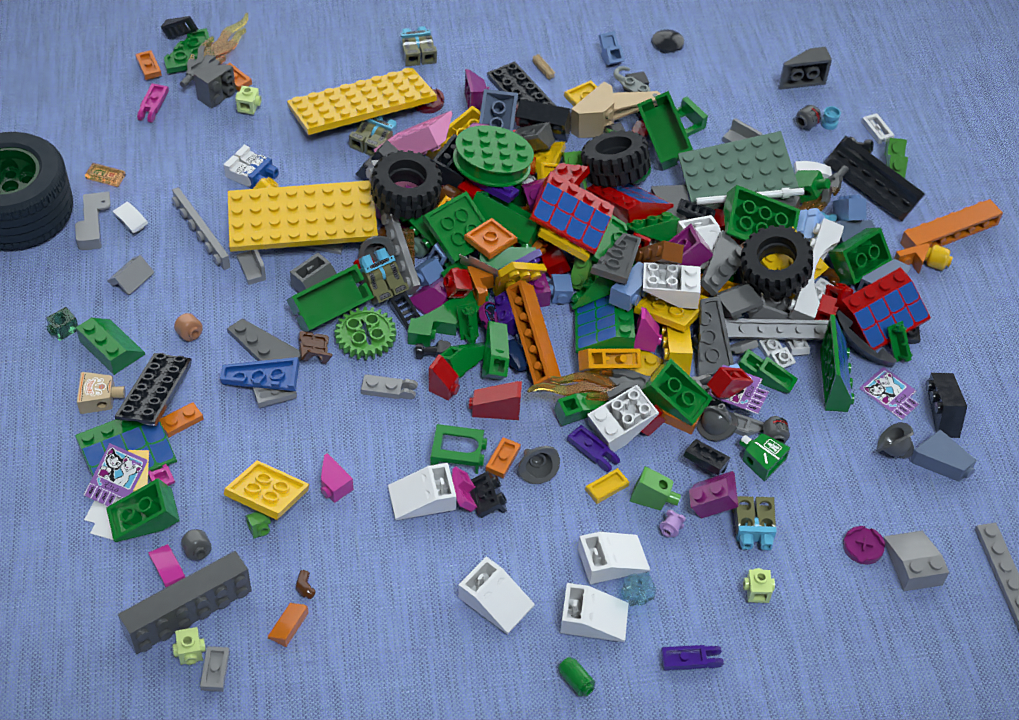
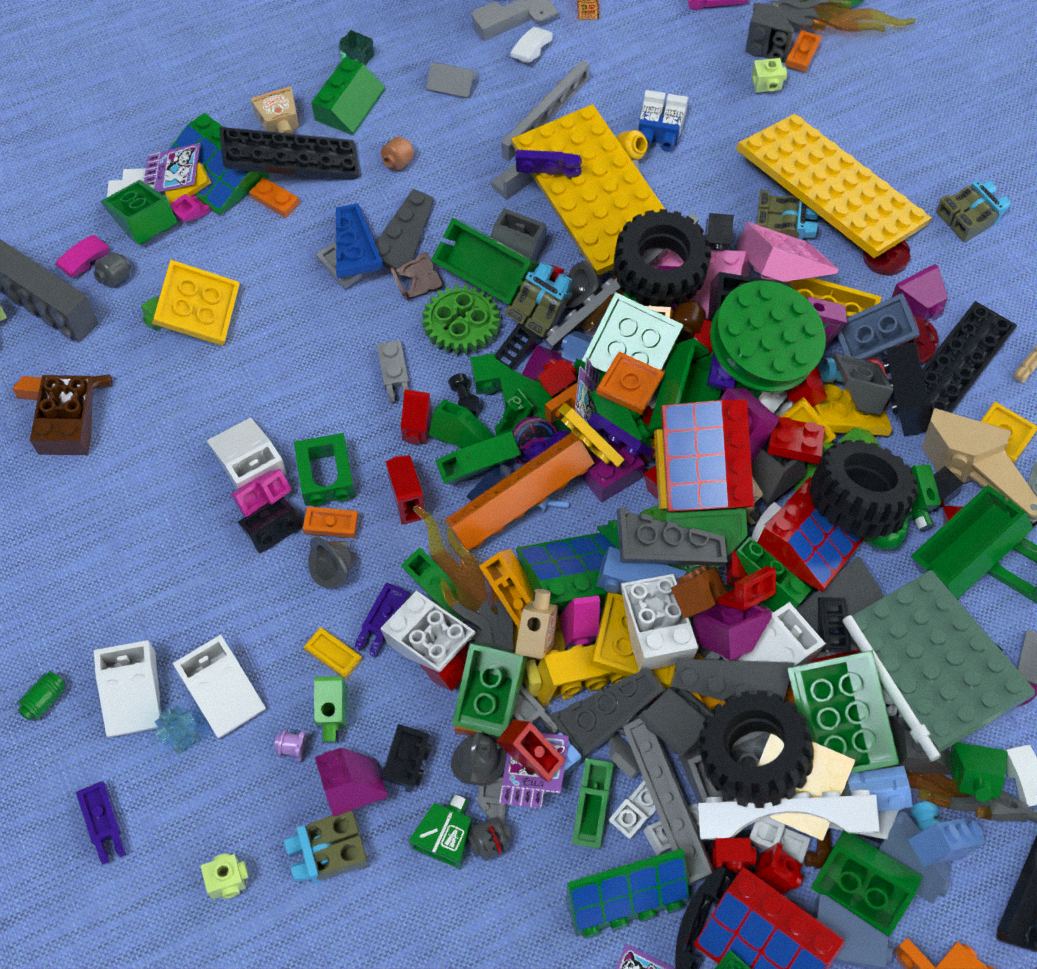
camera: 75 degrees right, 10 degrees up
(274, 226) = (548, 162): none -> dark purple hinge
(330, 606) = (63, 415): none -> reddish brown slope
(334, 480) = (238, 361): dark pink slope -> none
(495, 595) = (124, 573): white slope -> none
(561, 288) = (624, 497): medium blue brick -> none
(651, 346) = (537, 626): none -> tan torso
(668, 231) = (751, 589): none -> red panel

